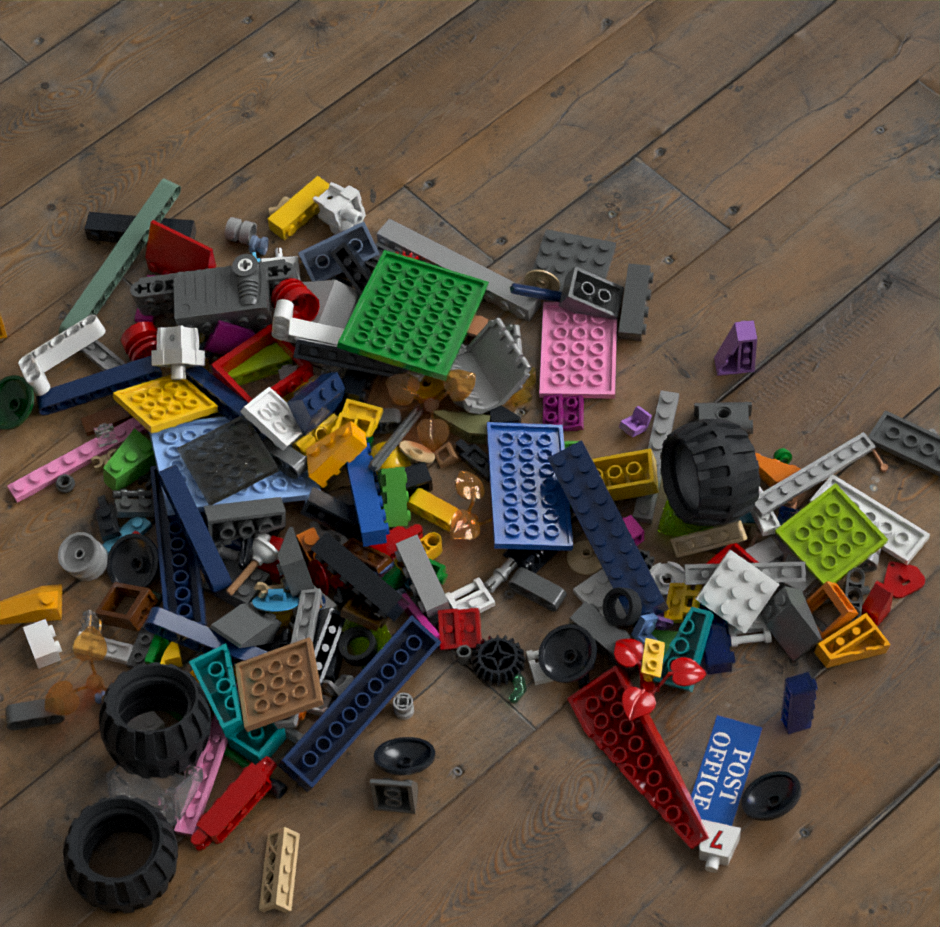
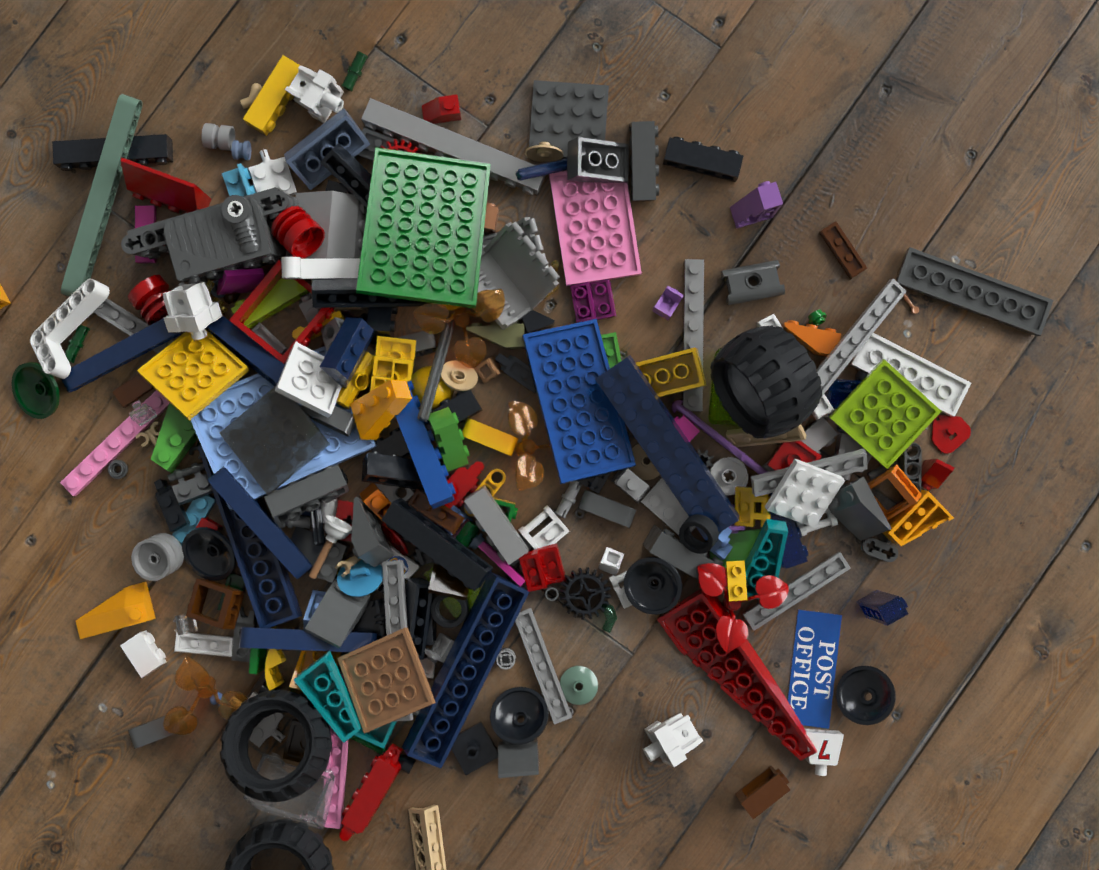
camera: 15 degrees left, 30 degrees up
(59, 374) = (76, 343): none -> dark green pin
(349, 787) = (474, 748): none -> black tile
(380, 200) = (354, 71): none -> dark green pin
(439, 720) = (542, 666): none -> light grey plate
(456, 238) = (442, 109): none -> red slope
(475, 755) = (581, 675): none -> sand green dish
(531, 639) = (611, 561): none -> white slope
(557, 803) = (670, 741): none -> white piece
(563, 567) = (631, 484): none -> light grey torso
(628, 509) = (677, 406): none -> medium lavender bar
(644, 868) = (763, 791): none -> reddish brown window
(694, 312) = (703, 159): none -> black brick
(717, 693) = (800, 589): none -> light grey plate
(813, 668) = (878, 554): none -> dark grey beam
(819, 407) = (843, 250): none -> reddish brown tile

